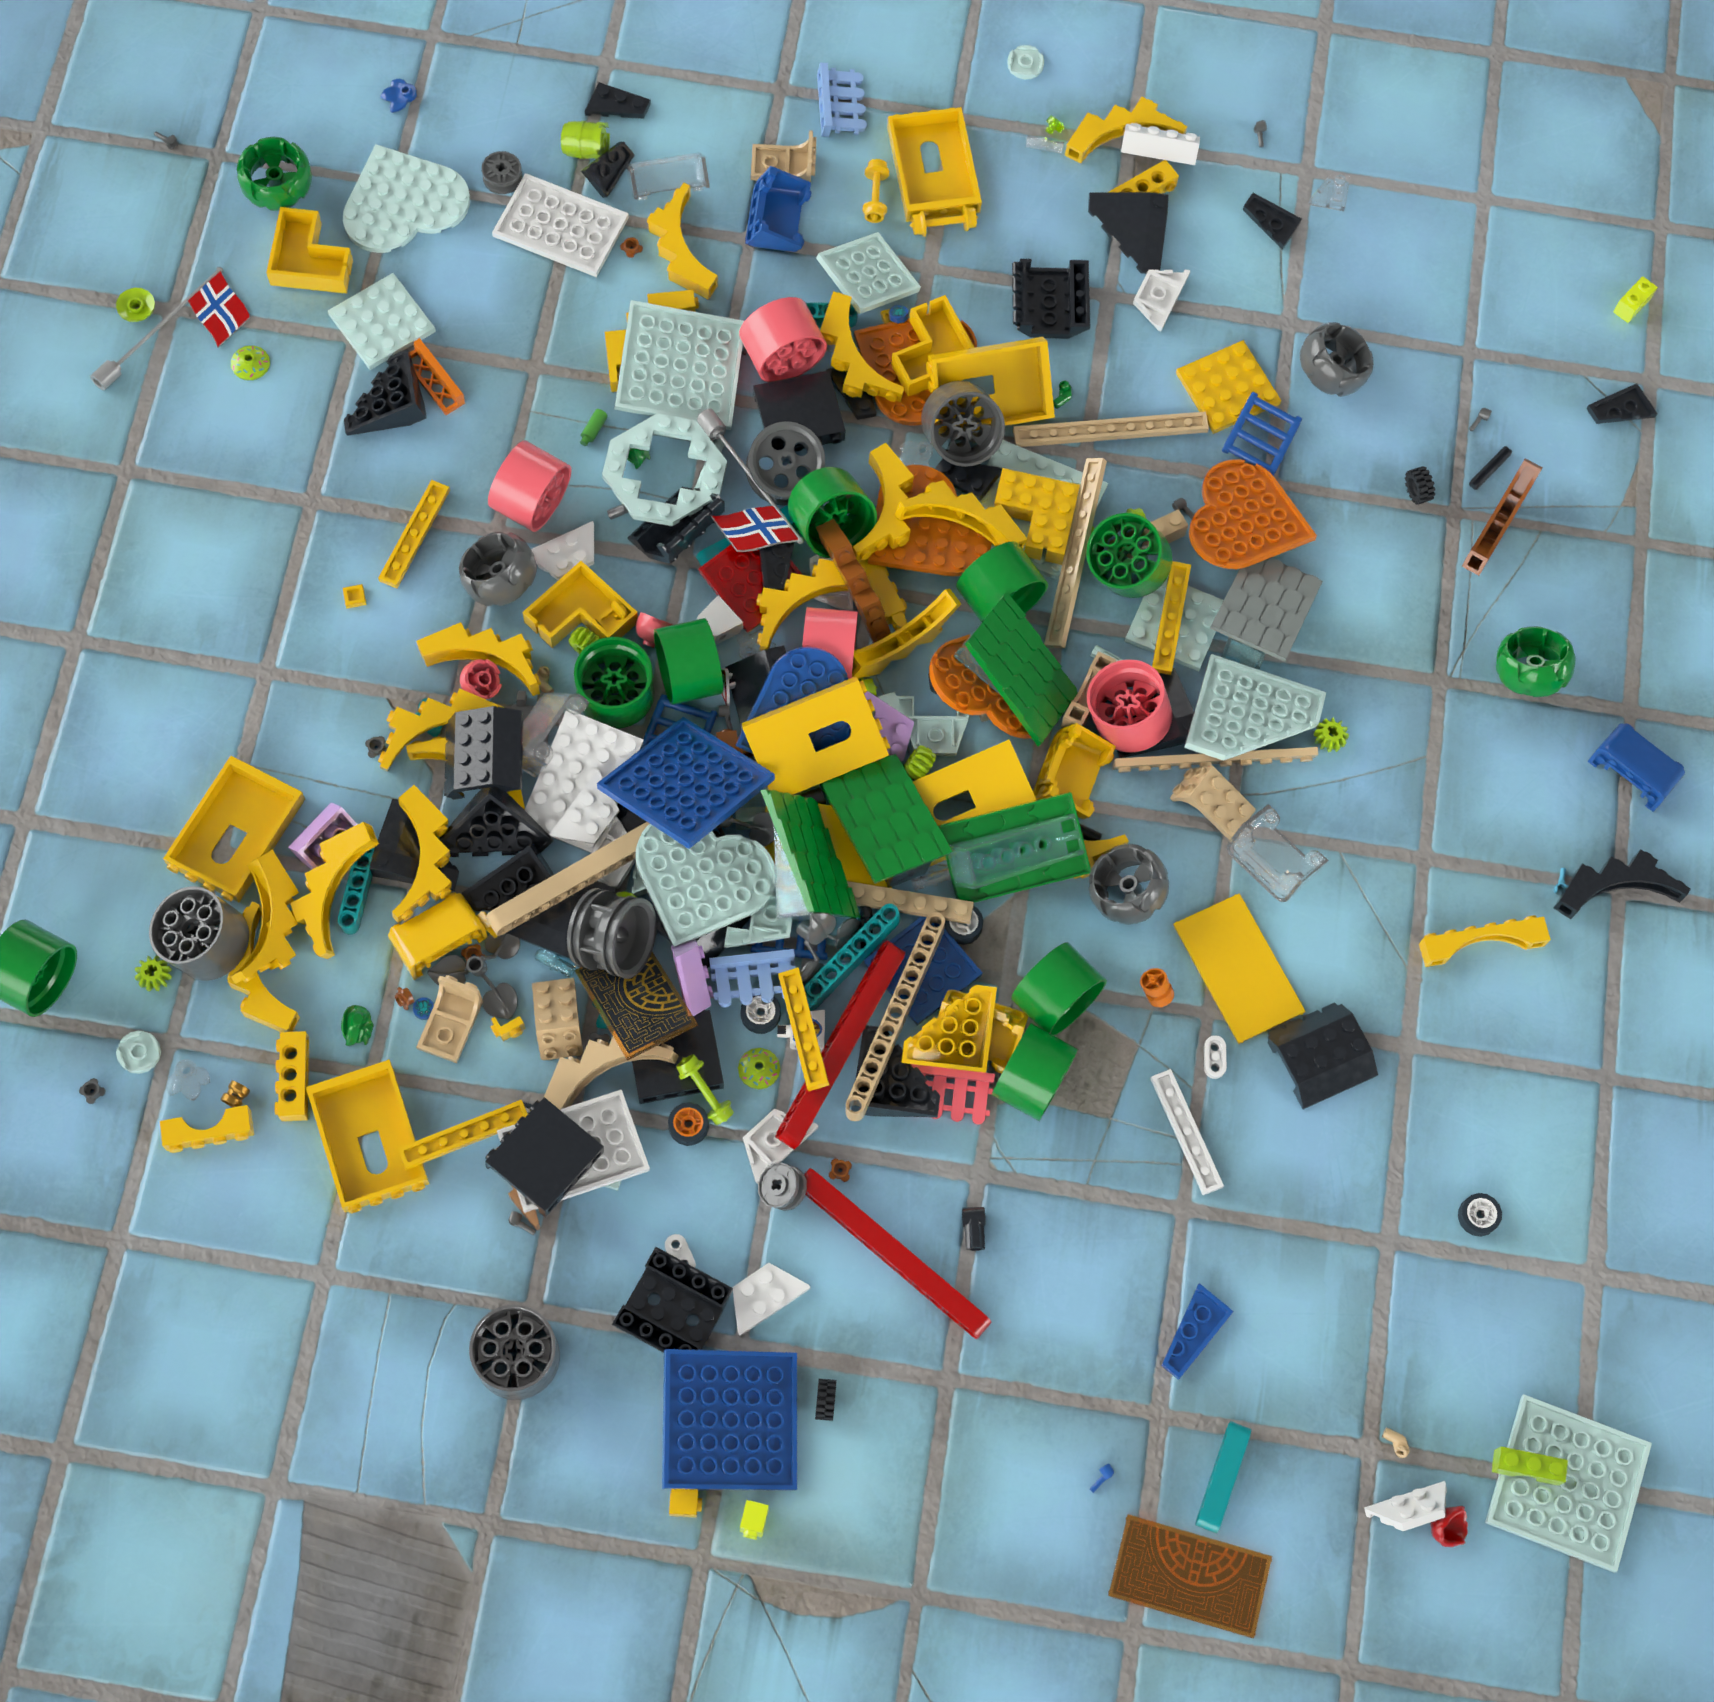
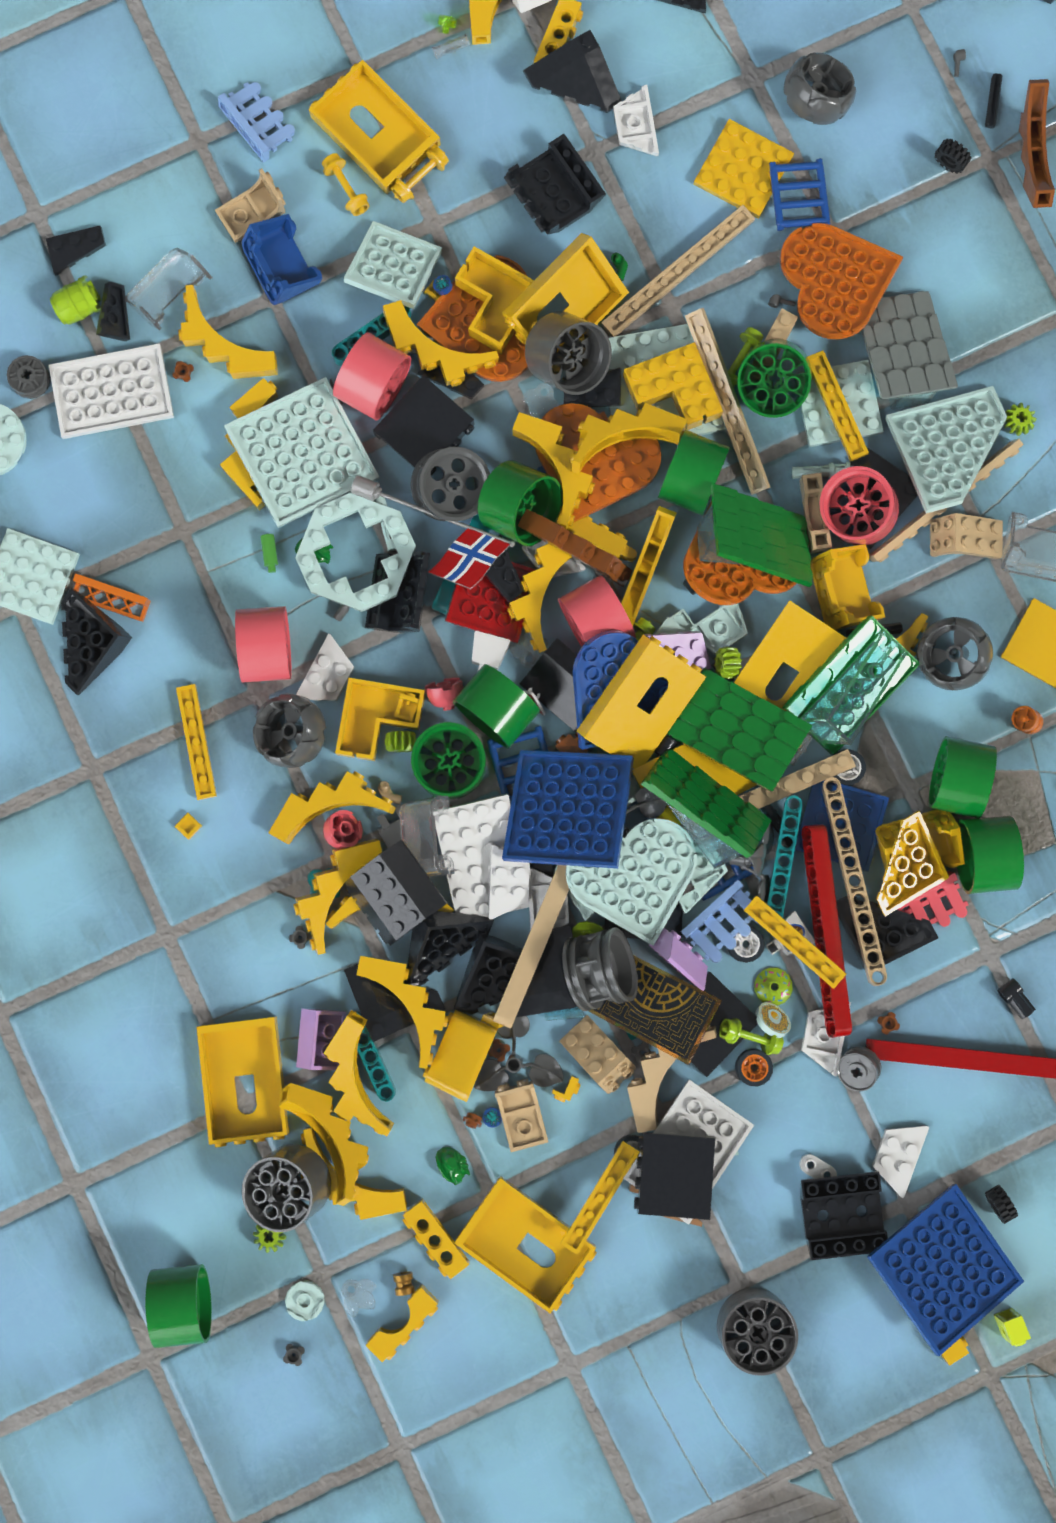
camera: 30 degrees left, 15 degrees up
(515, 1220) = (679, 1228): dark grey hand -> none
(724, 711) = (546, 721): dark grey hand -> none
(736, 1090) = (772, 1019): none -> tile

